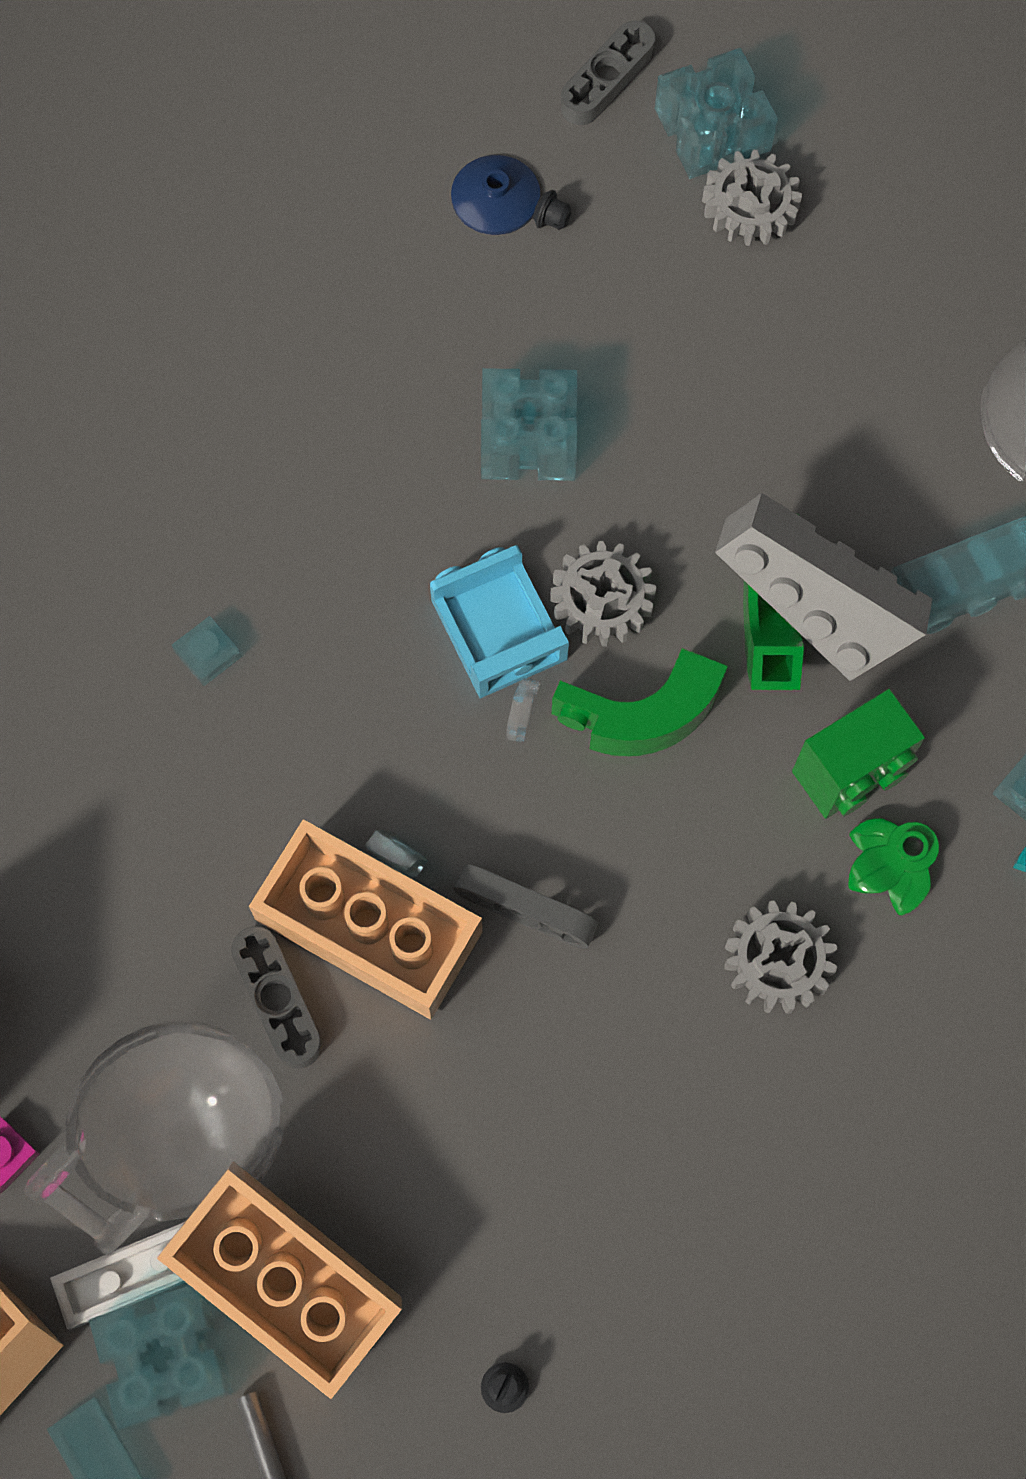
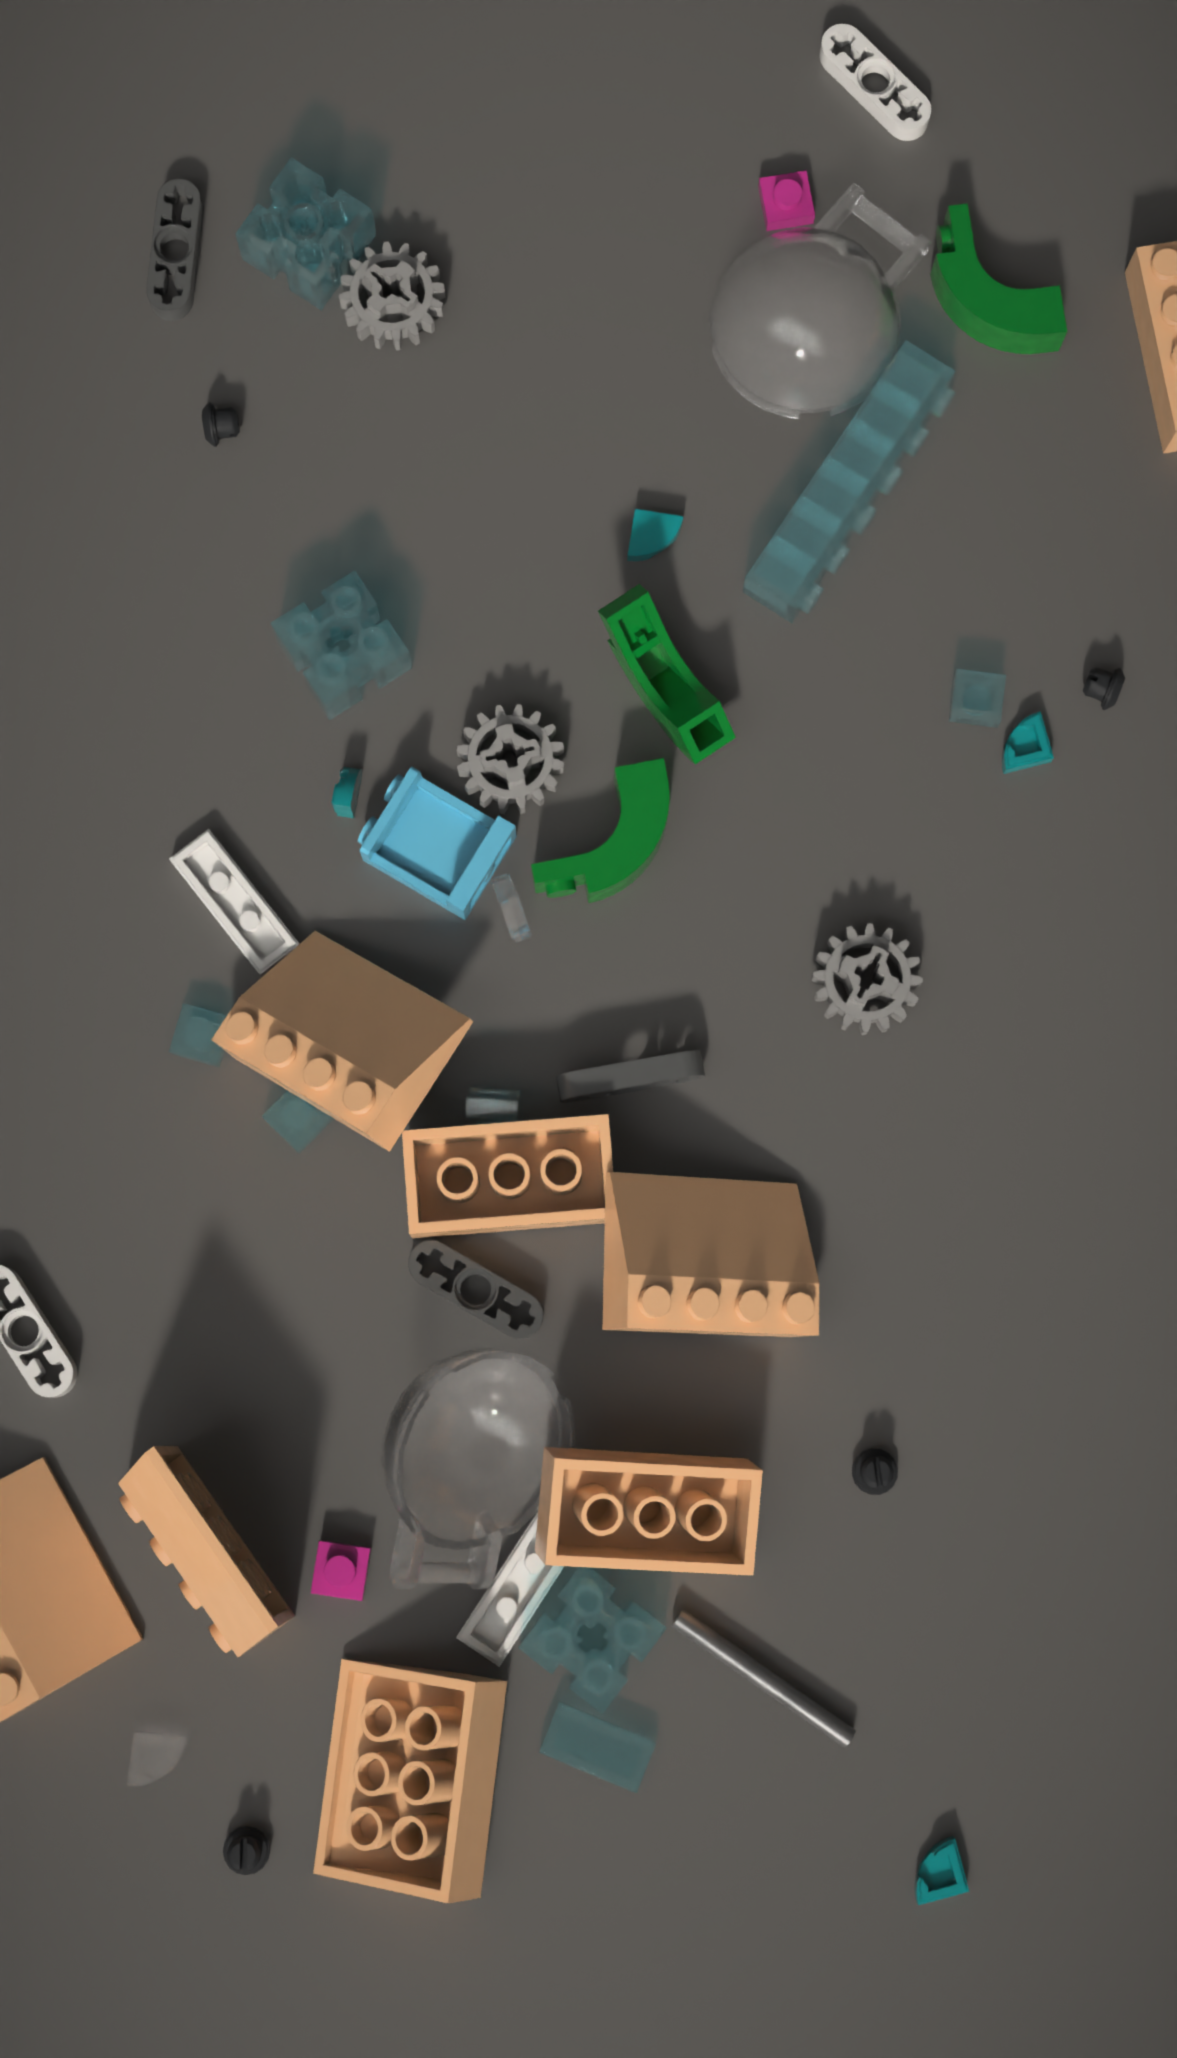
camera: 35 degrees left, 10 degrees up
(235, 763) = (296, 1120): none -> clear light blue plate
(307, 568) = (234, 902): none -> white tile
(312, 718) = (344, 1037): none -> light nougat slope
(453, 539) = (346, 792): none -> teal tile
(483, 1096) = (707, 1257): none -> light nougat slope
(492, 209) = (156, 458): dark blue dish -> none
(821, 588) = (701, 639): light grey wedge -> none
(839, 495) = (652, 533): none -> teal tile
(858, 755) = (819, 770): green brick -> none
(887, 866) = (903, 842): green plate -> none

